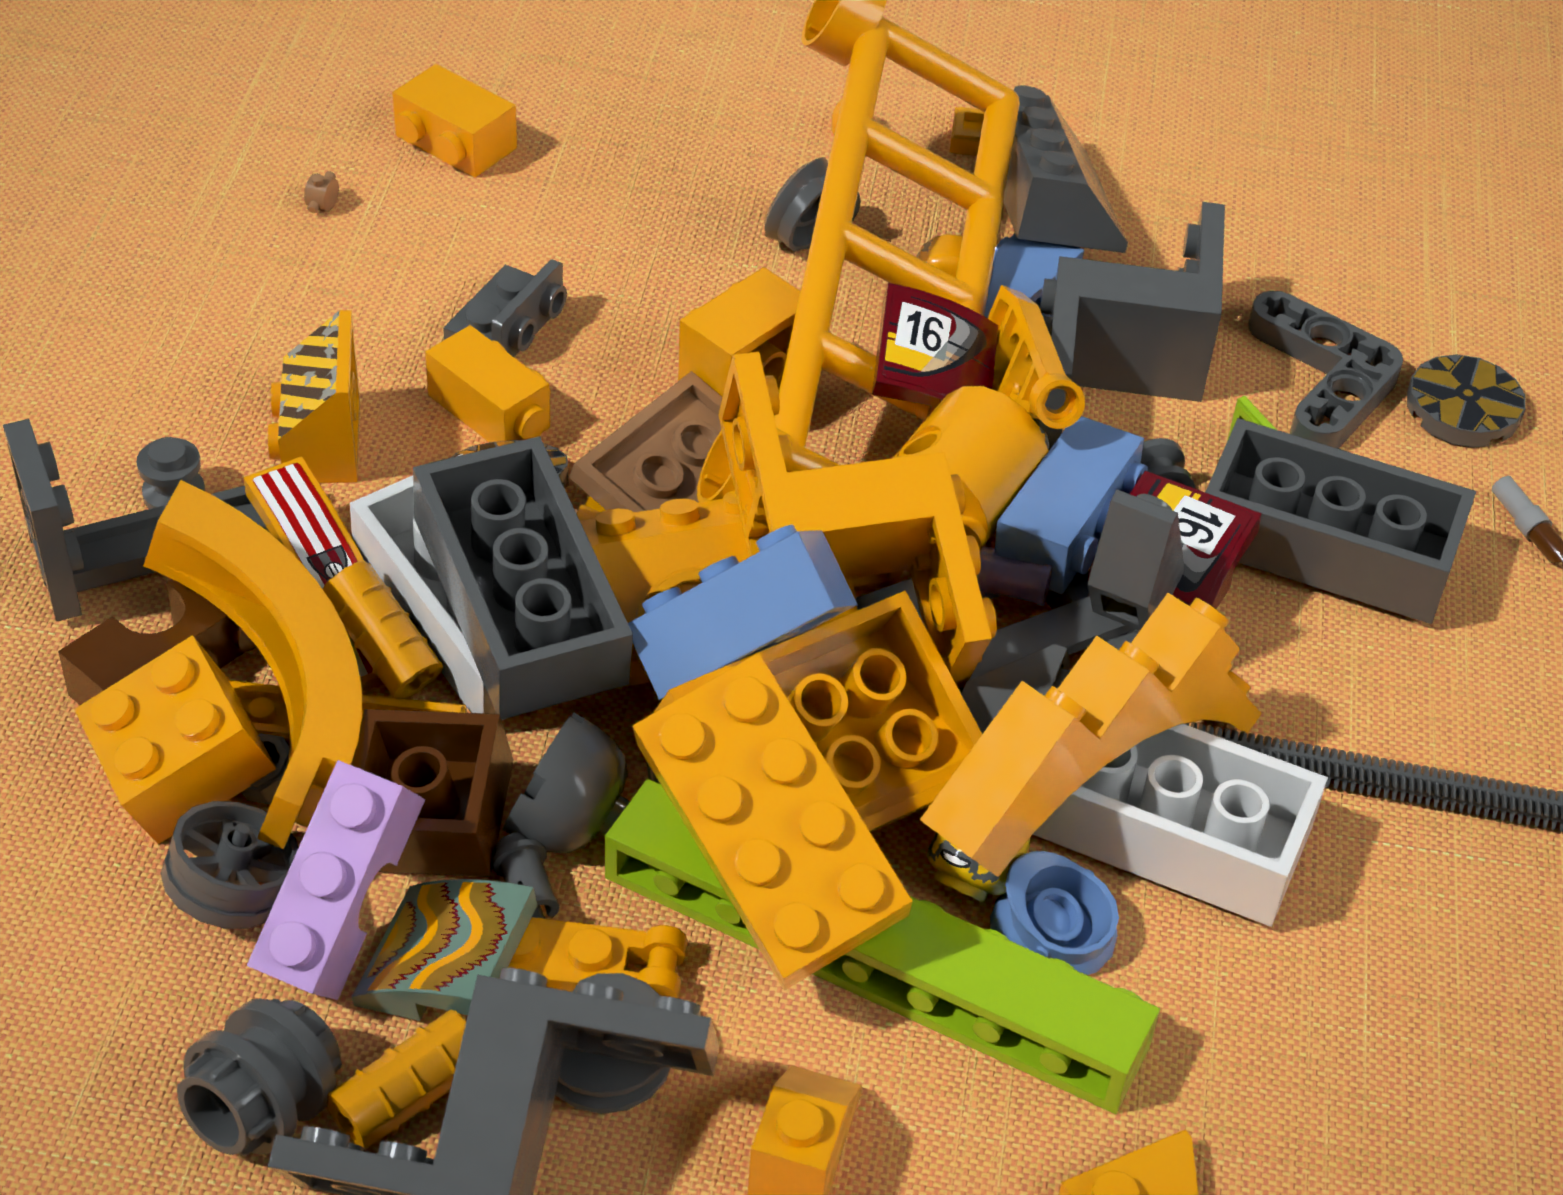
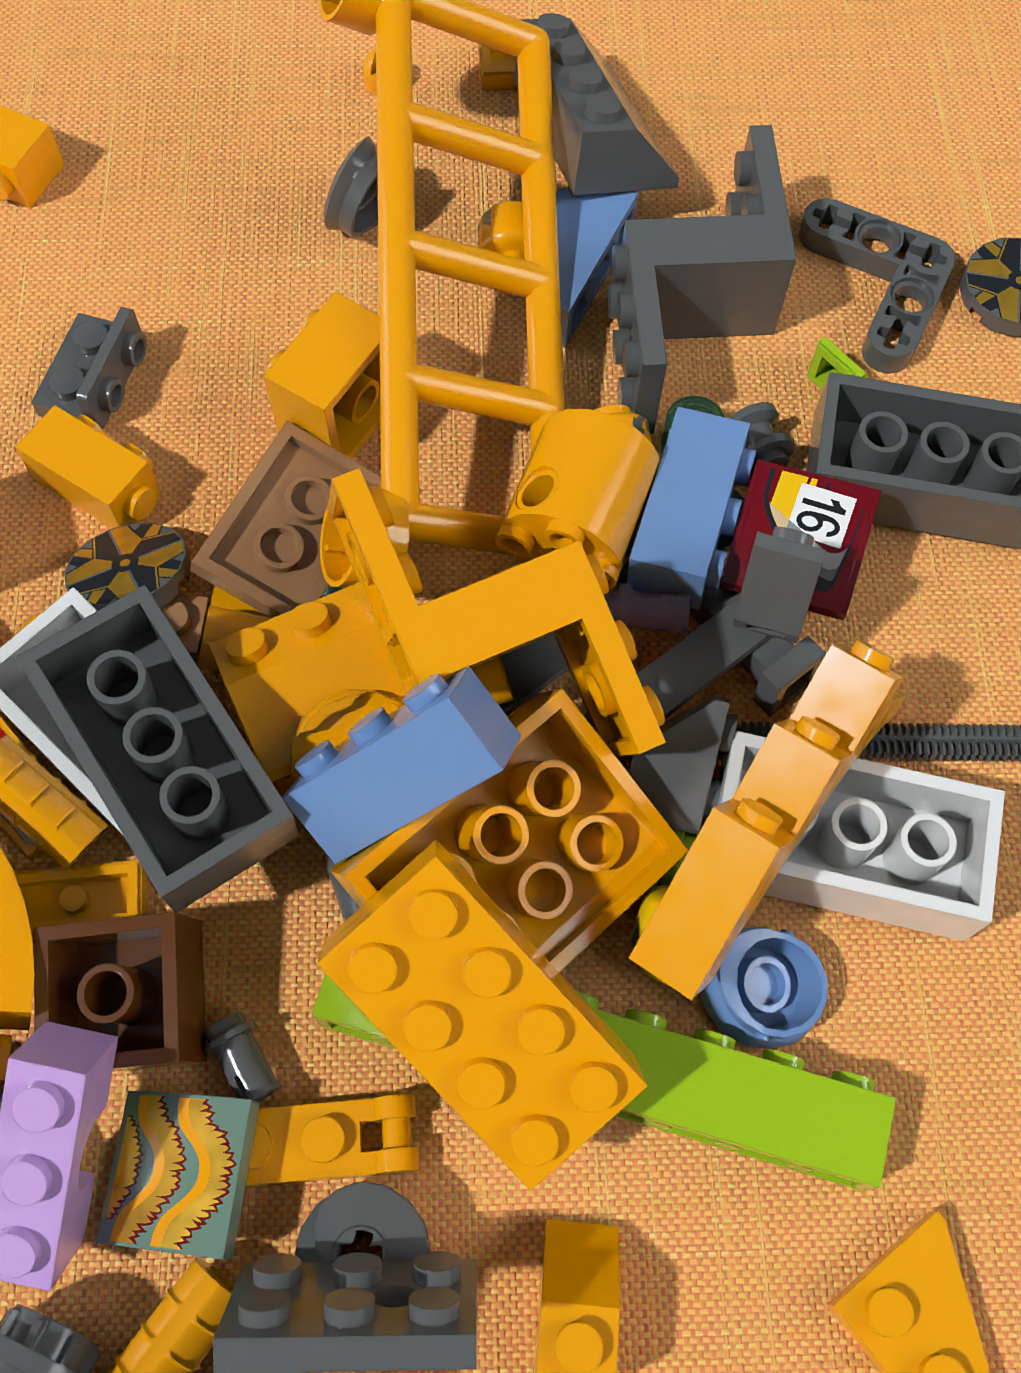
camera: 10 degrees left, 20 degrees up
(572, 789) = (267, 958): dark grey cylinder -> none
(931, 347) = (523, 360): slope -> none
(1028, 361) = (587, 310): light orange plate -> none

